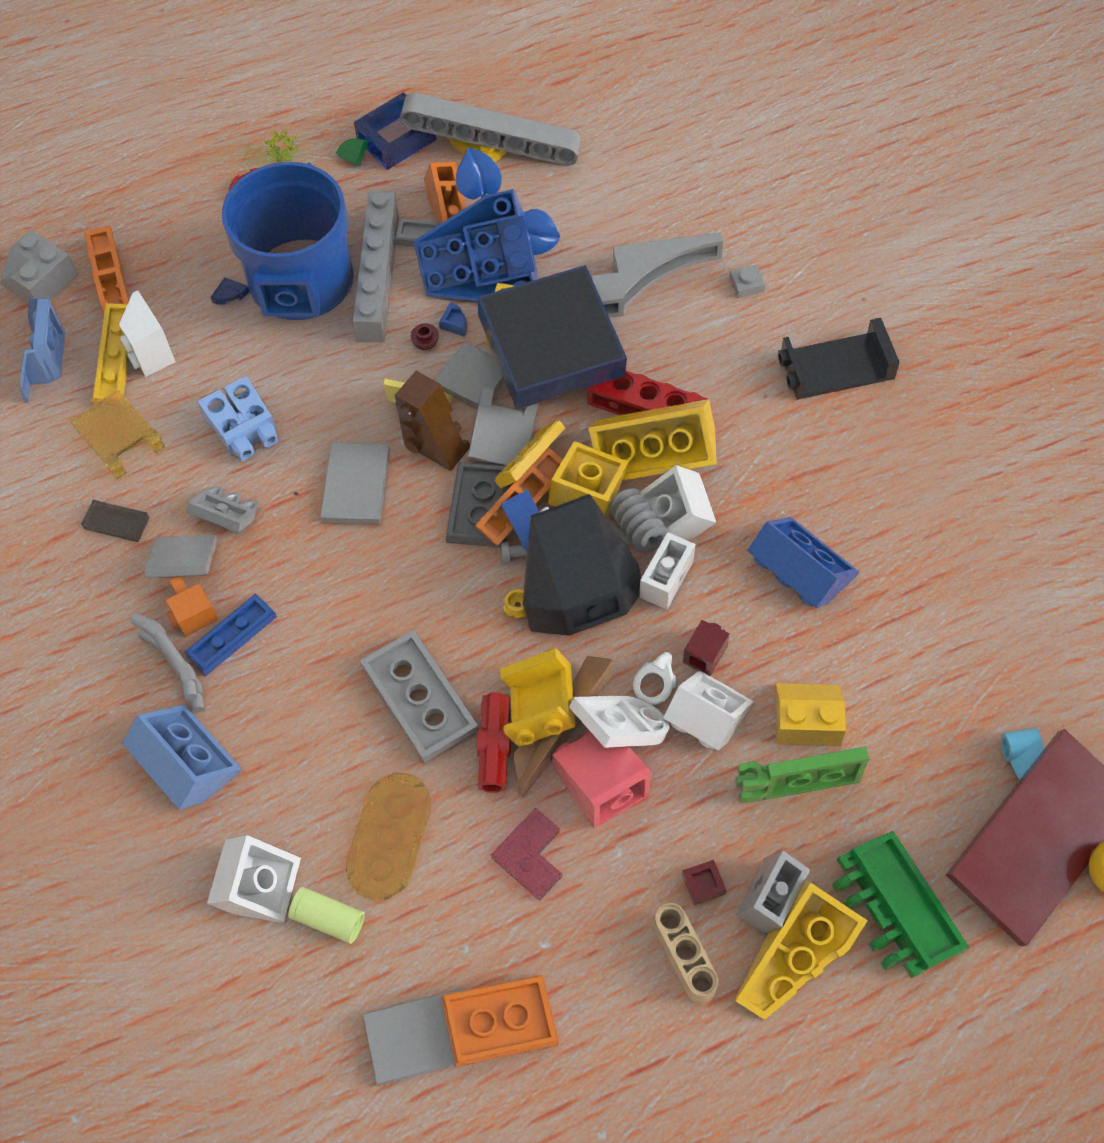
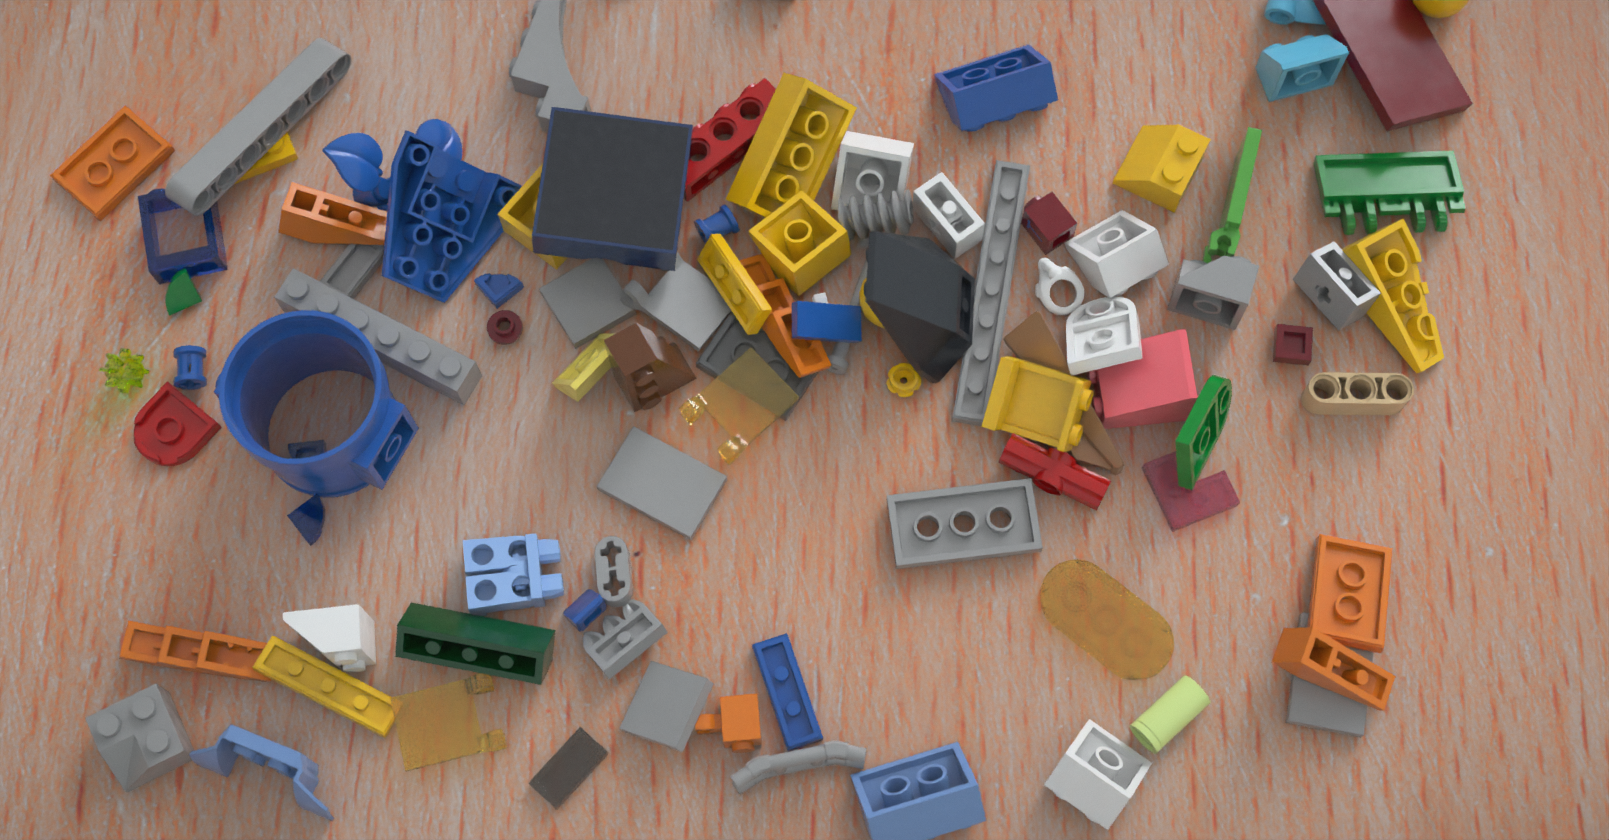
camera: 65 degrees left, 10 degrees up
(177, 420) = (475, 643): none -> dark green brick
(235, 478) = (585, 609): none -> blue slope
(272, 481) = (605, 572): none -> light grey beam
(419, 1030) = (1333, 666): none -> orange slope
(427, 75) = (112, 163): none -> orange tile
(441, 504) = (742, 401): none -> clear yellow flag
(575, 426) = (718, 223): none -> blue bush
(580, 831) = (1202, 429): none -> green tile
(640, 630) = (991, 291): none -> light grey tile
(713, 792) = (1214, 290): none -> light grey slope
(965, 779) = (1300, 66): none -> medium azure slope

